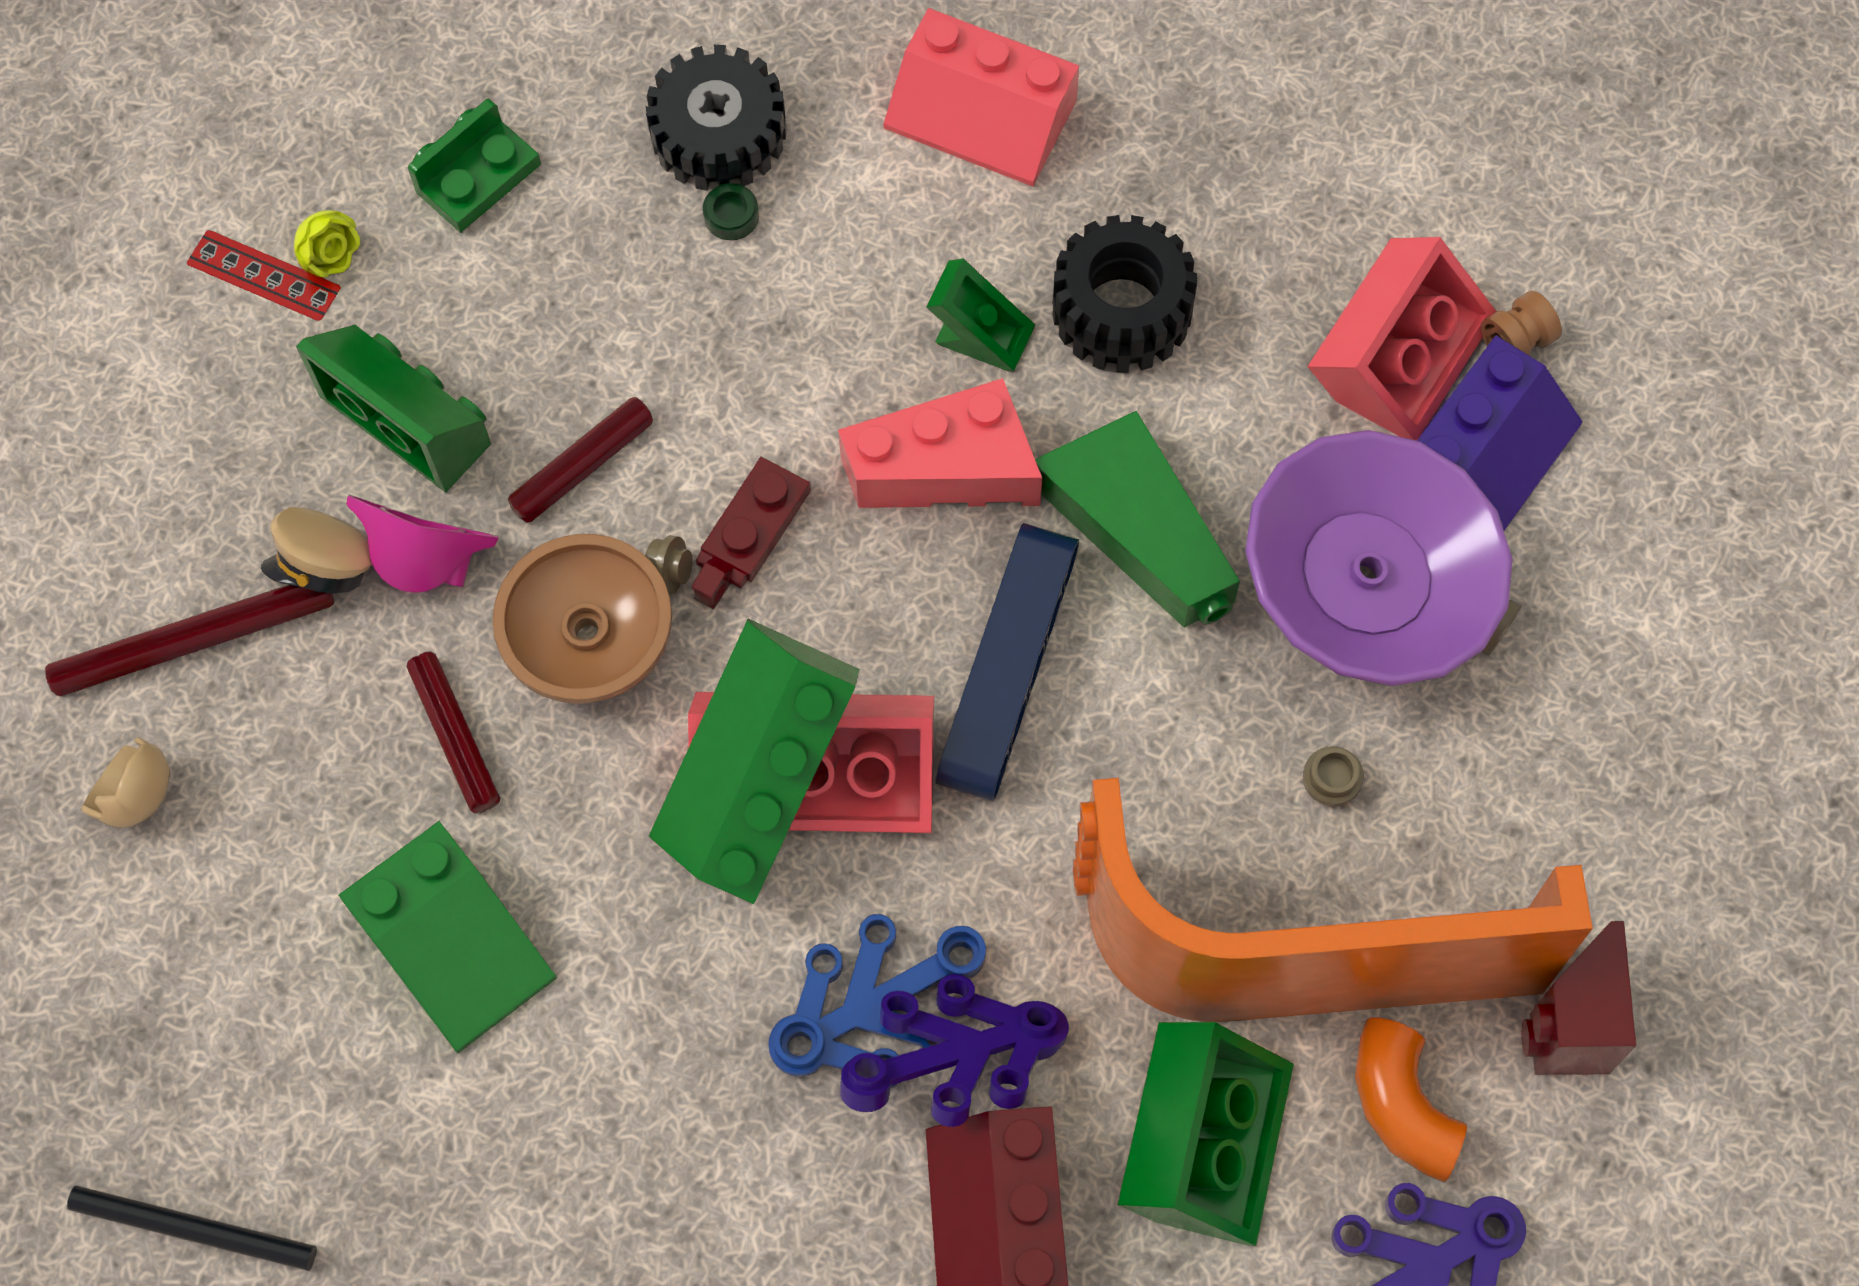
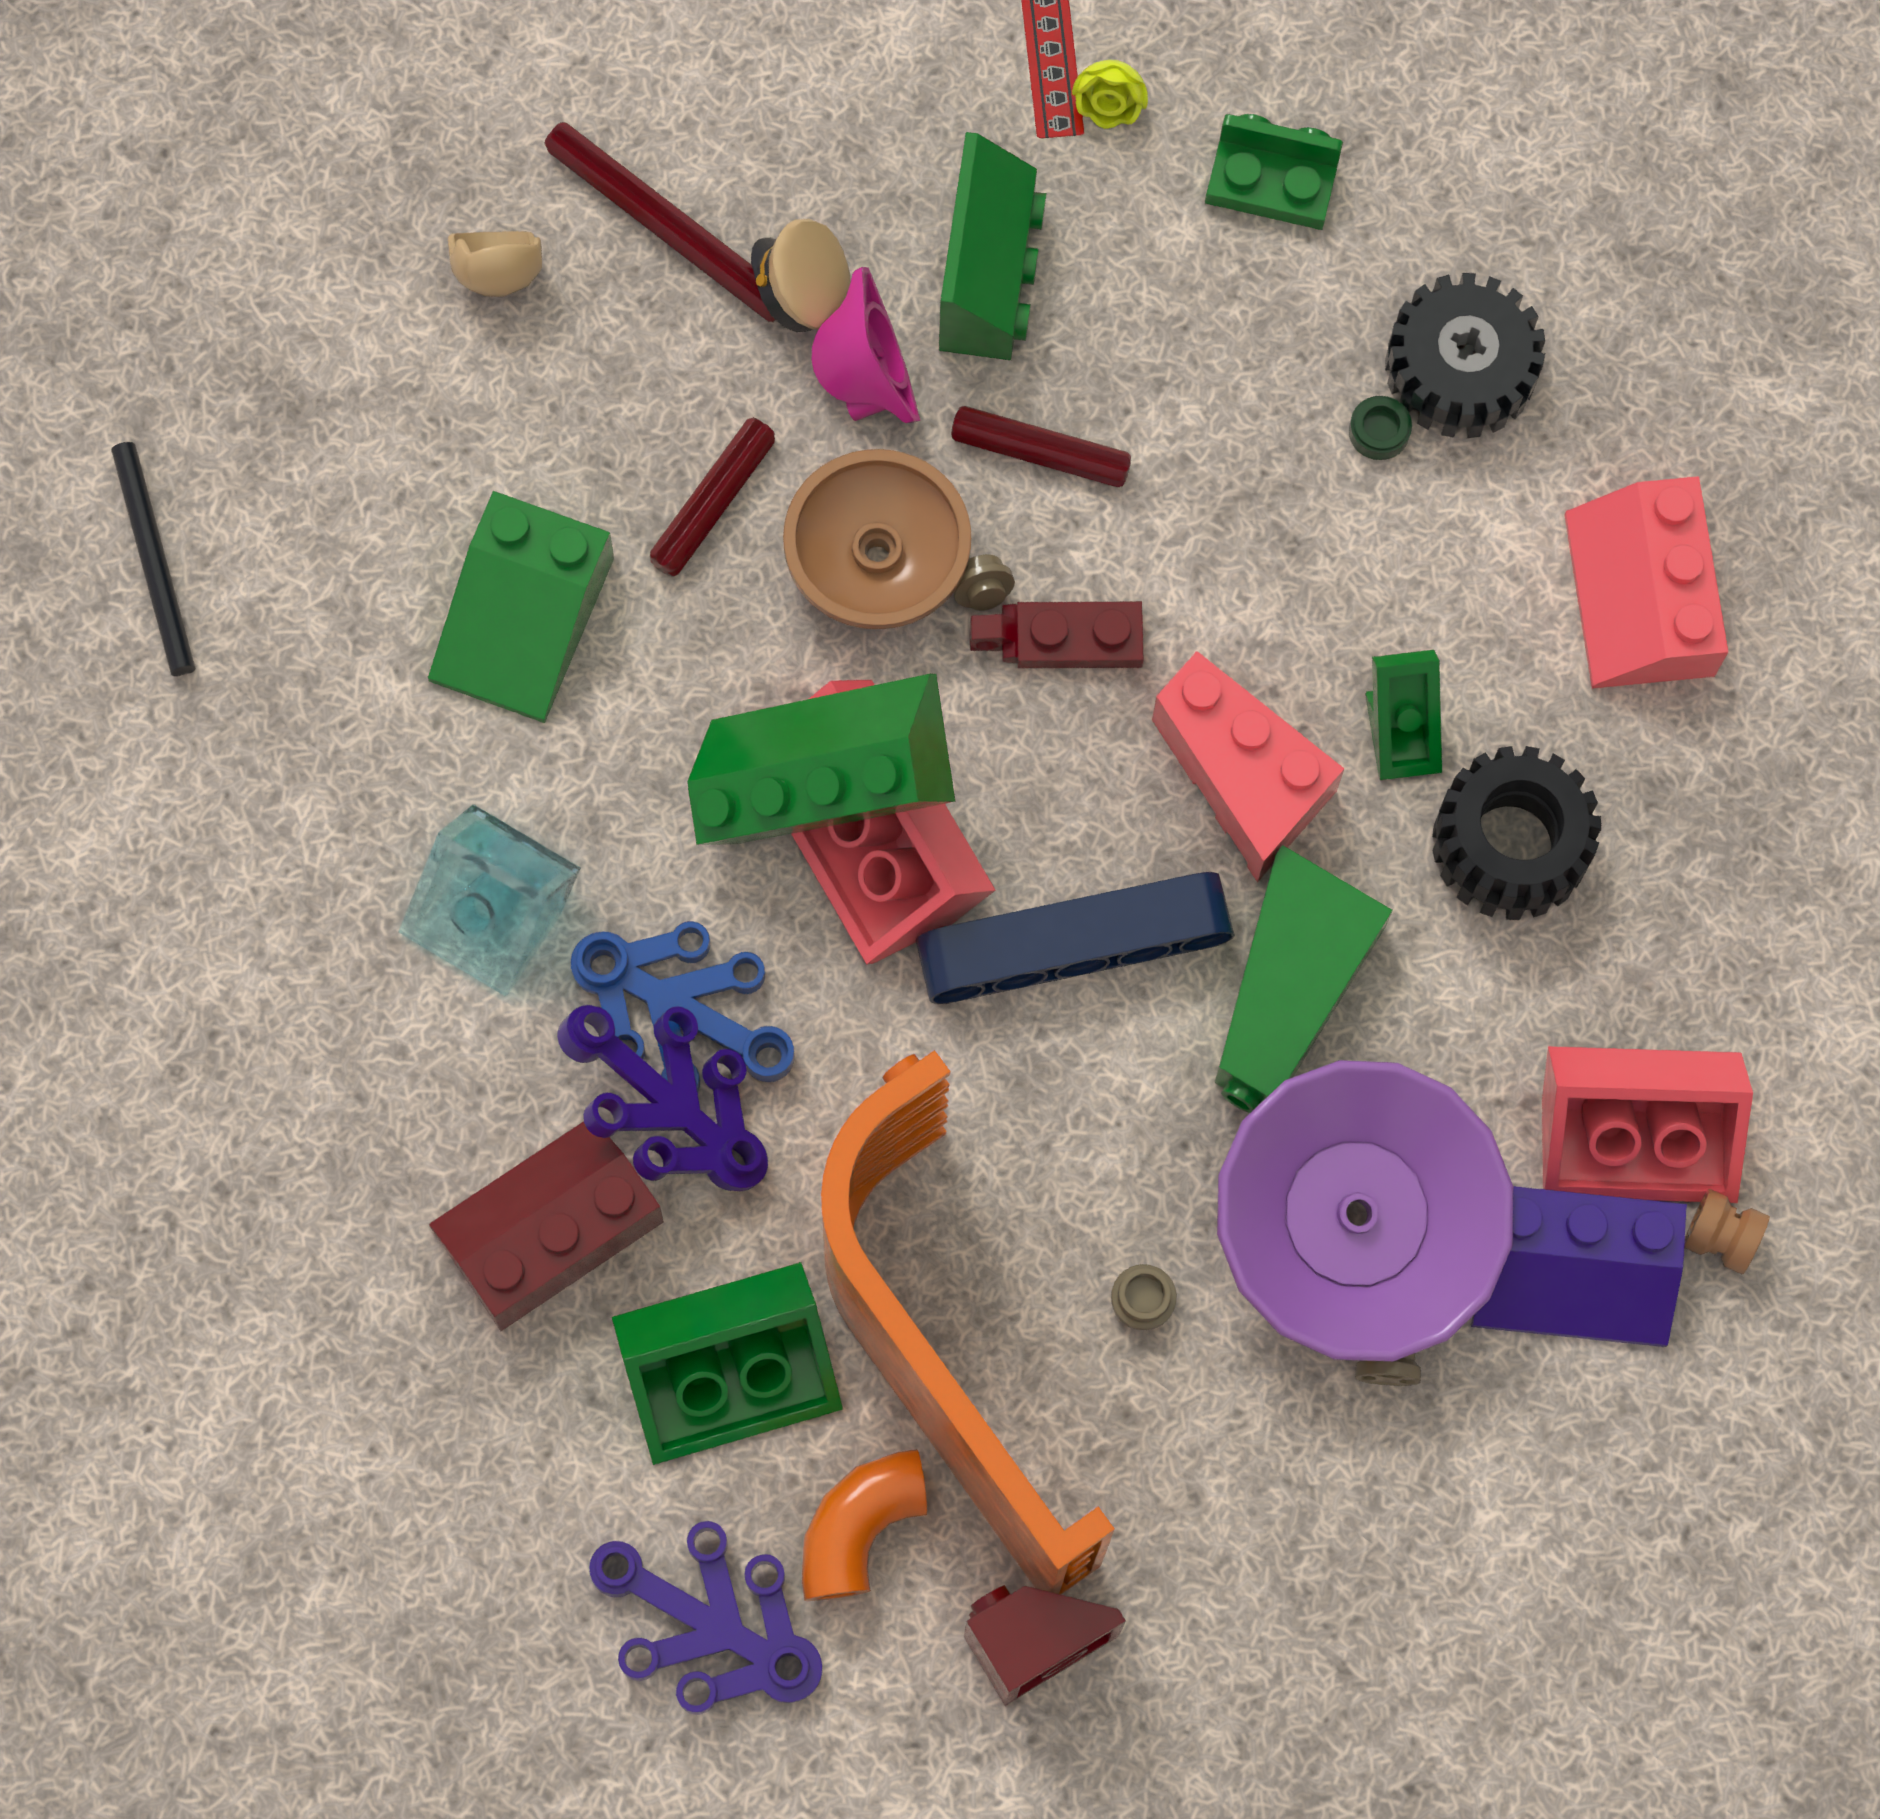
camera: 55 degrees right, 5 degrees up
(688, 1106) = (488, 898): none -> clear light blue slope

